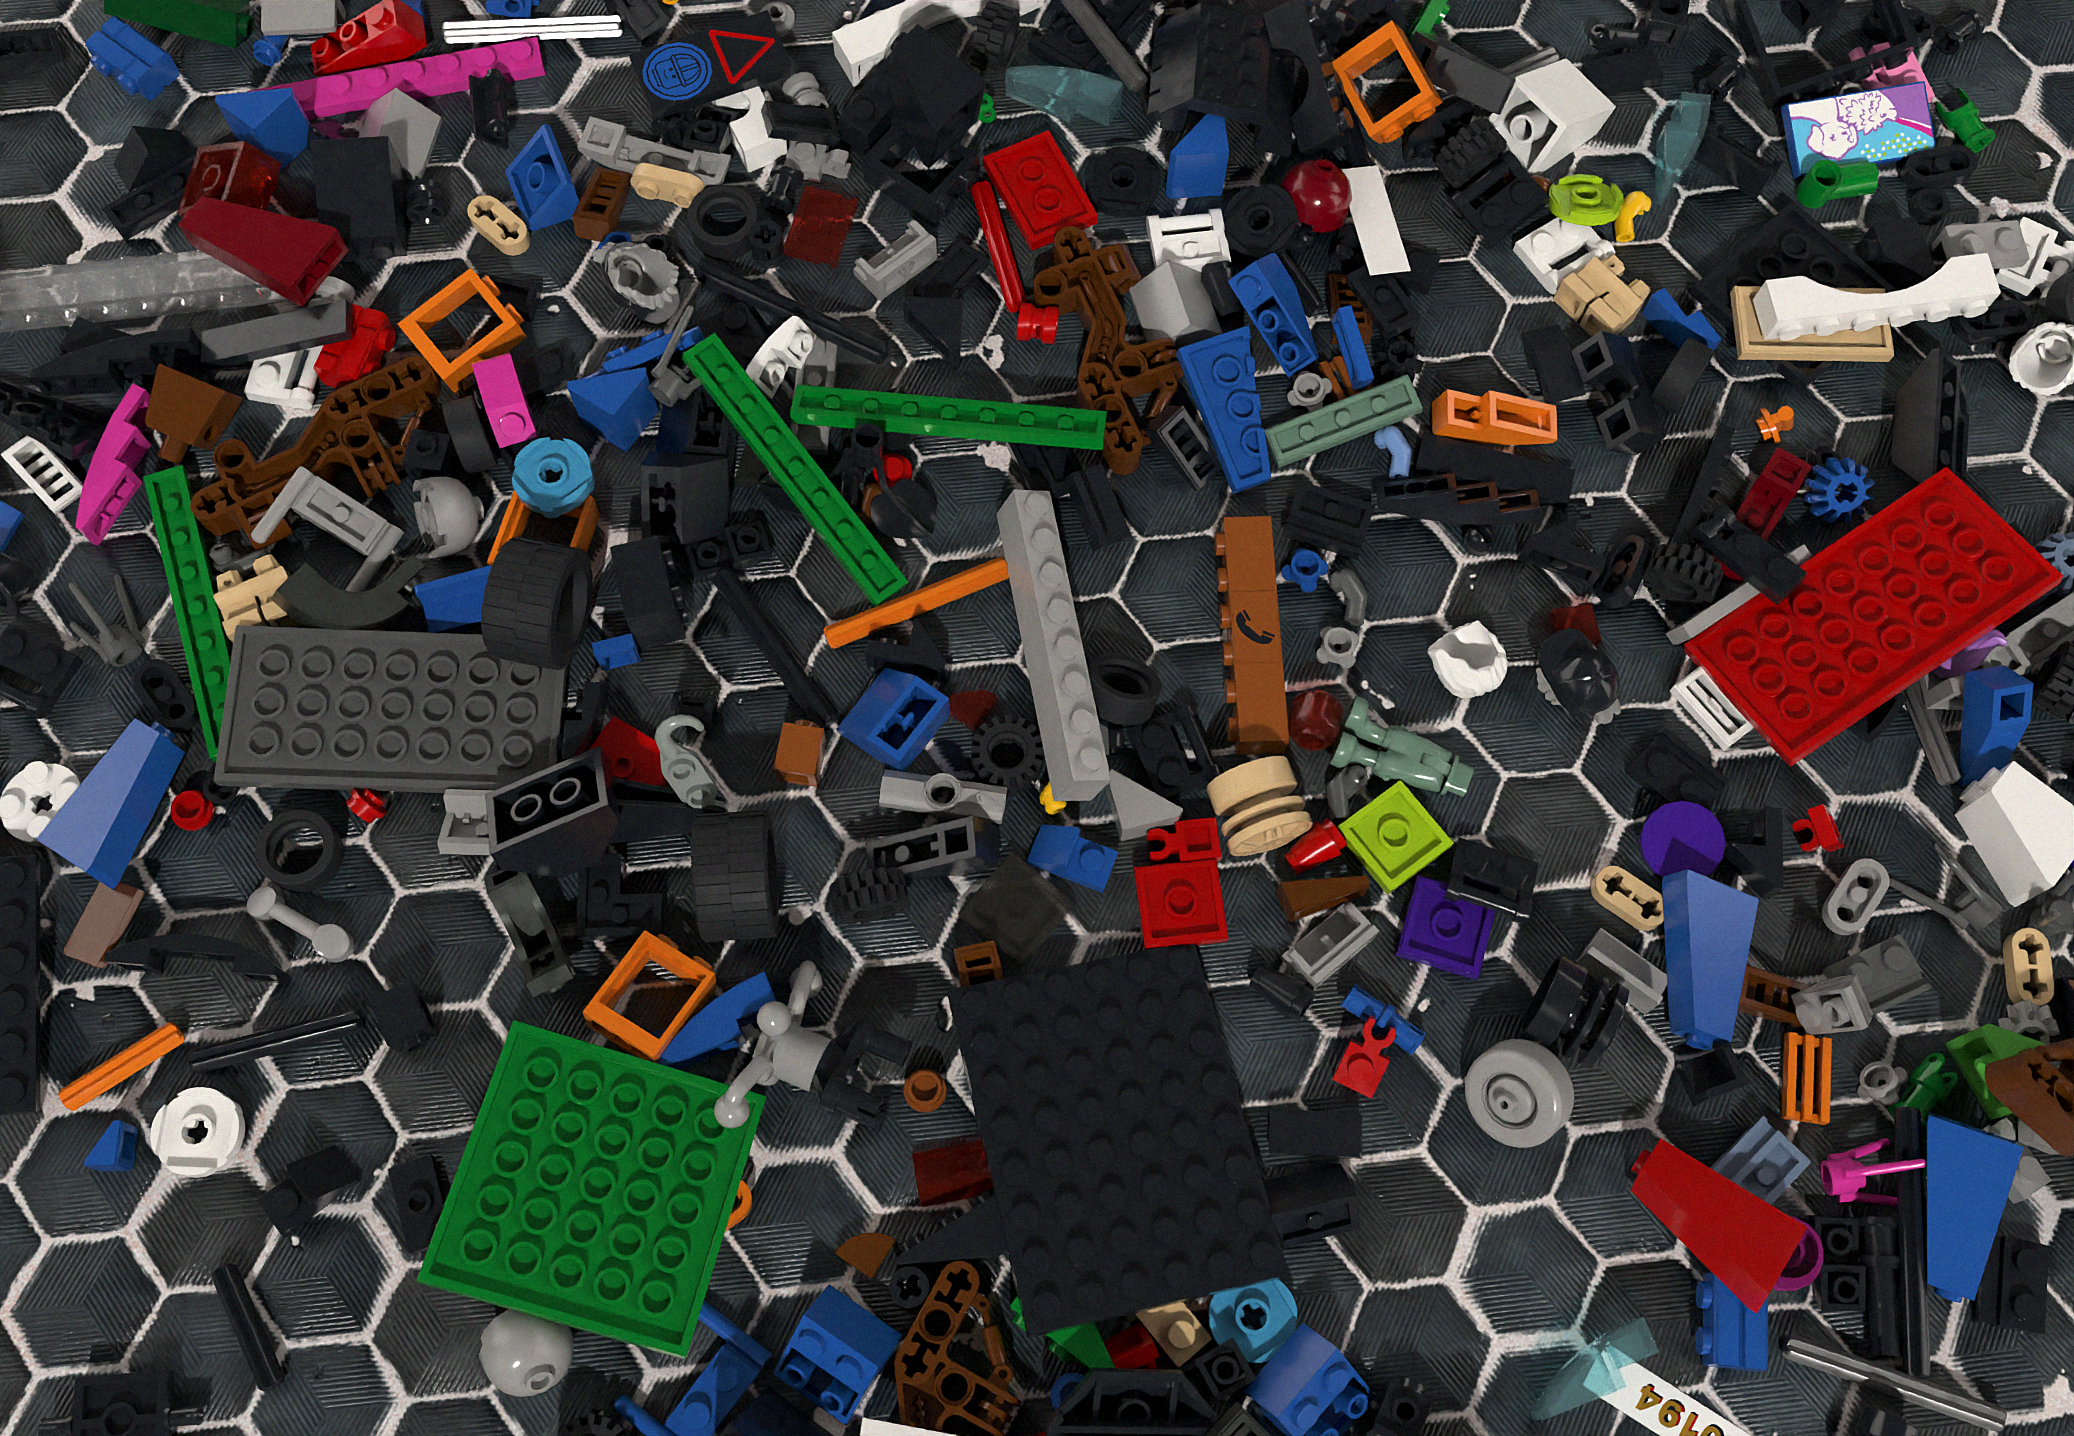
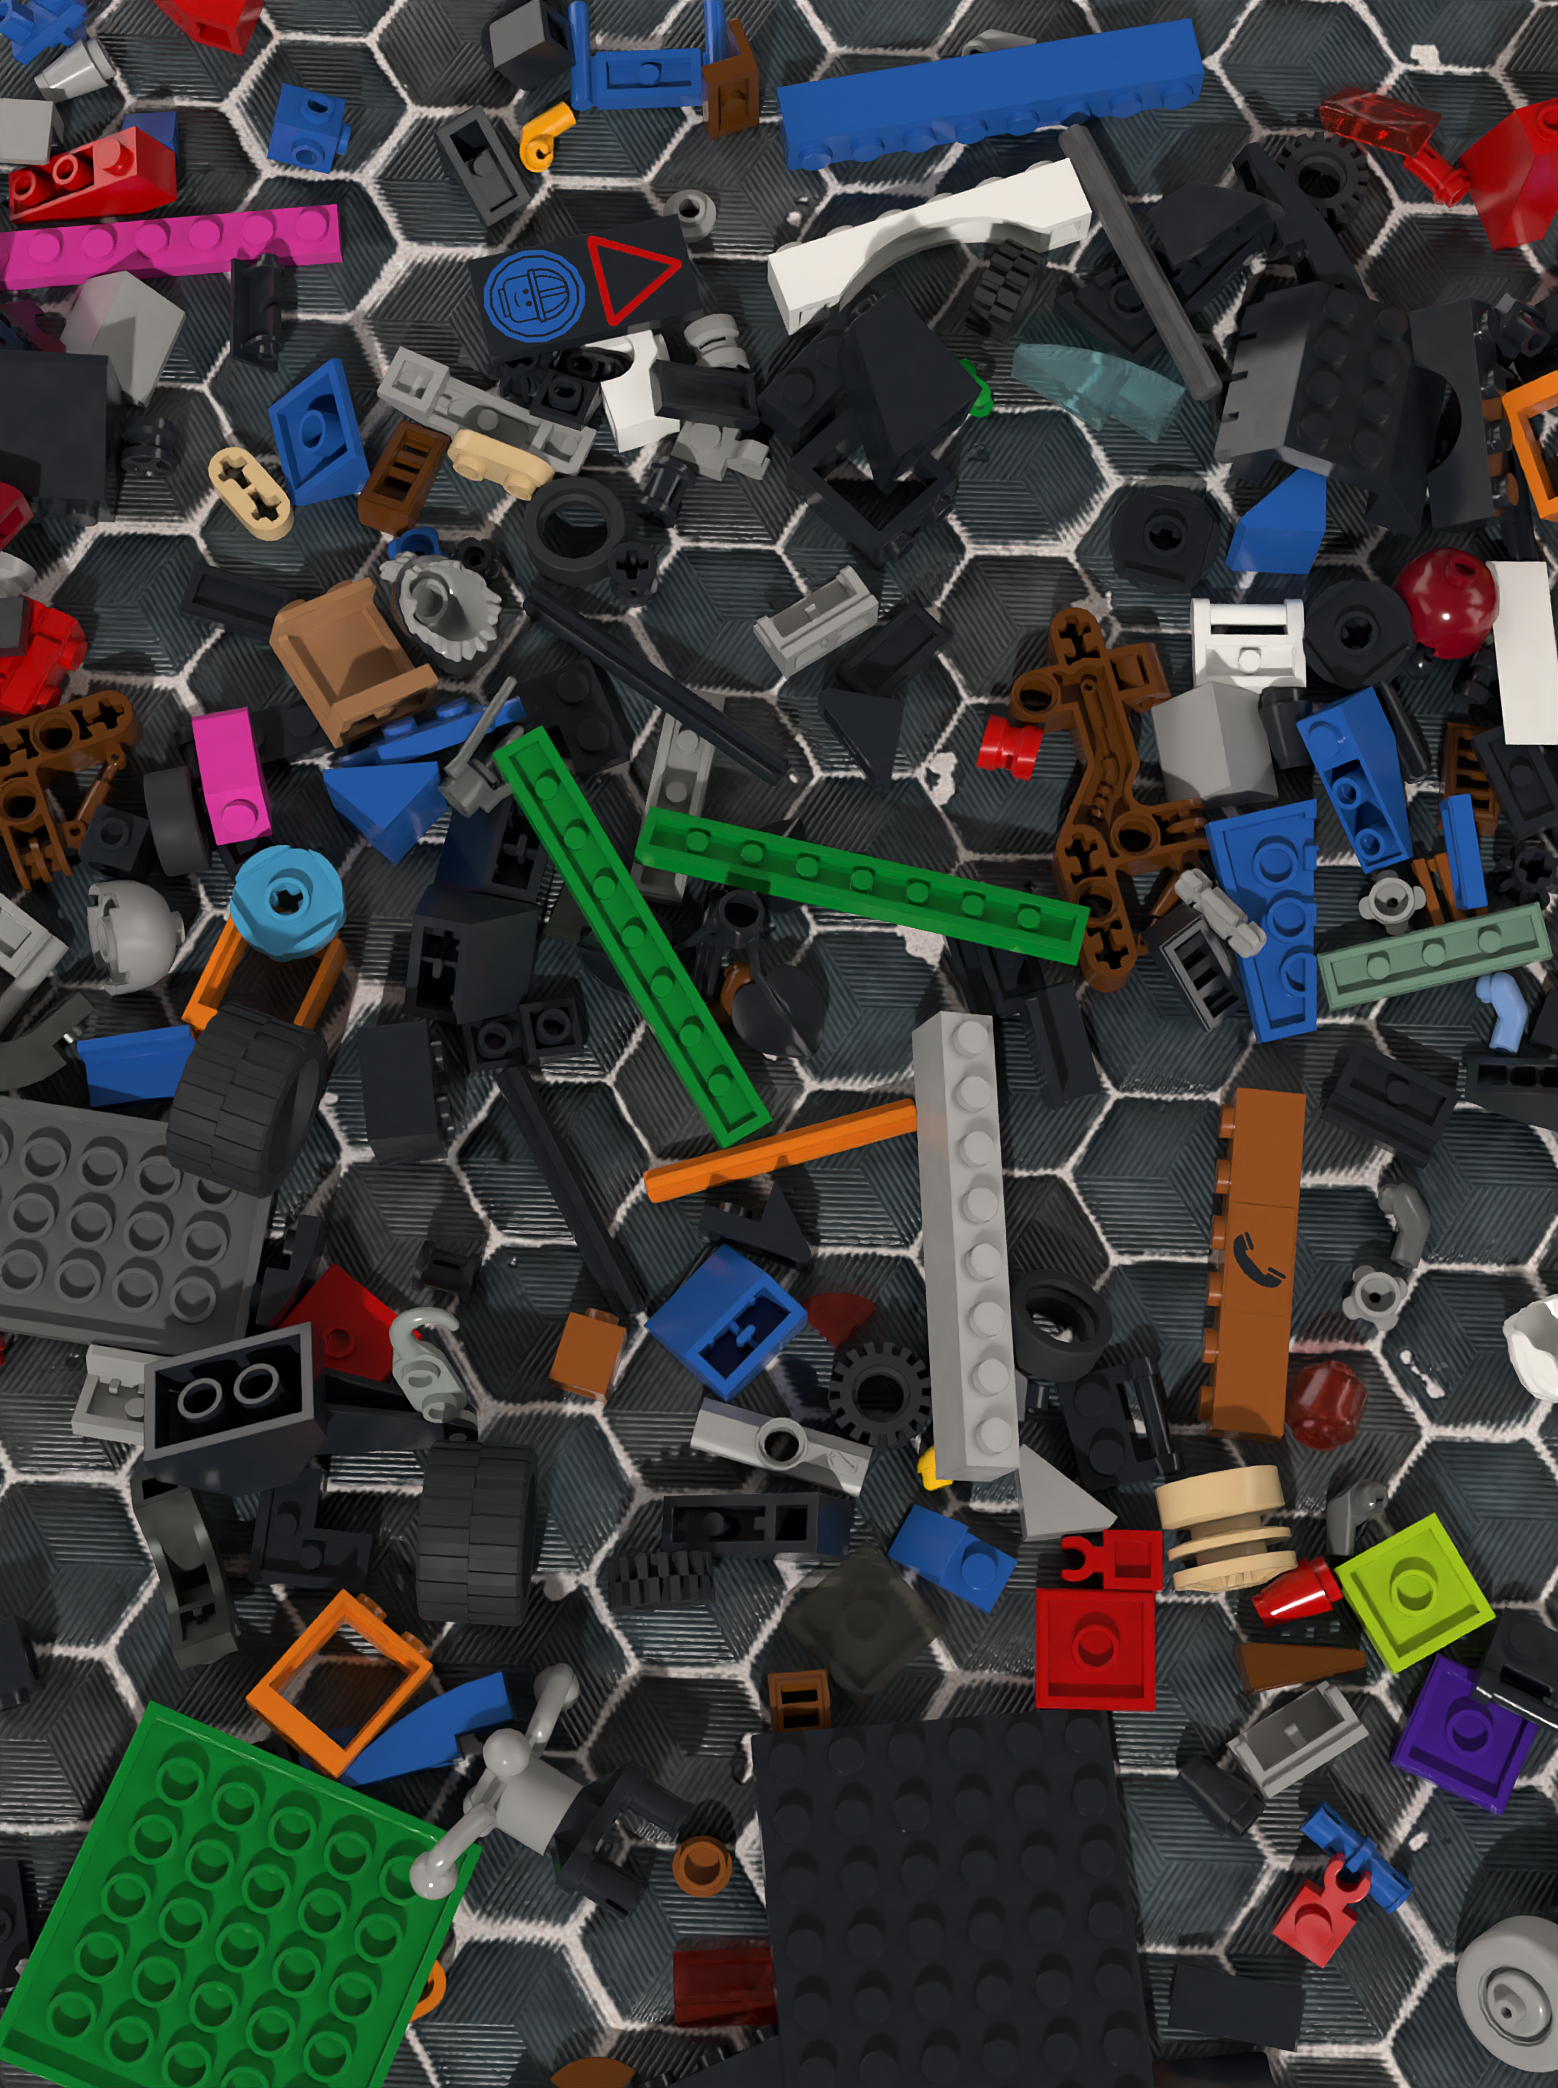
camera: 10 degrees right, 5 degrees up
(442, 304) = (211, 694): orange window -> none
(523, 28) = (331, 188): axle -> none
(577, 320) = (349, 662): none -> medium nougat panel
(616, 652) = (348, 1170): blue tile -> none
(784, 348) = (642, 741): white slope -> none
(820, 227) = (714, 555): clear red plate -> none
(895, 468) = (777, 946): red plate -> none
(998, 246) = (969, 617): red axle -> none
(1039, 189) = (1041, 537): red plate -> none
(1196, 405) = (1220, 913): none -> light grey axle
(1309, 560) = (1361, 1174): blue plate -> none
(1405, 757) = (1449, 1476): sand green piece -> none

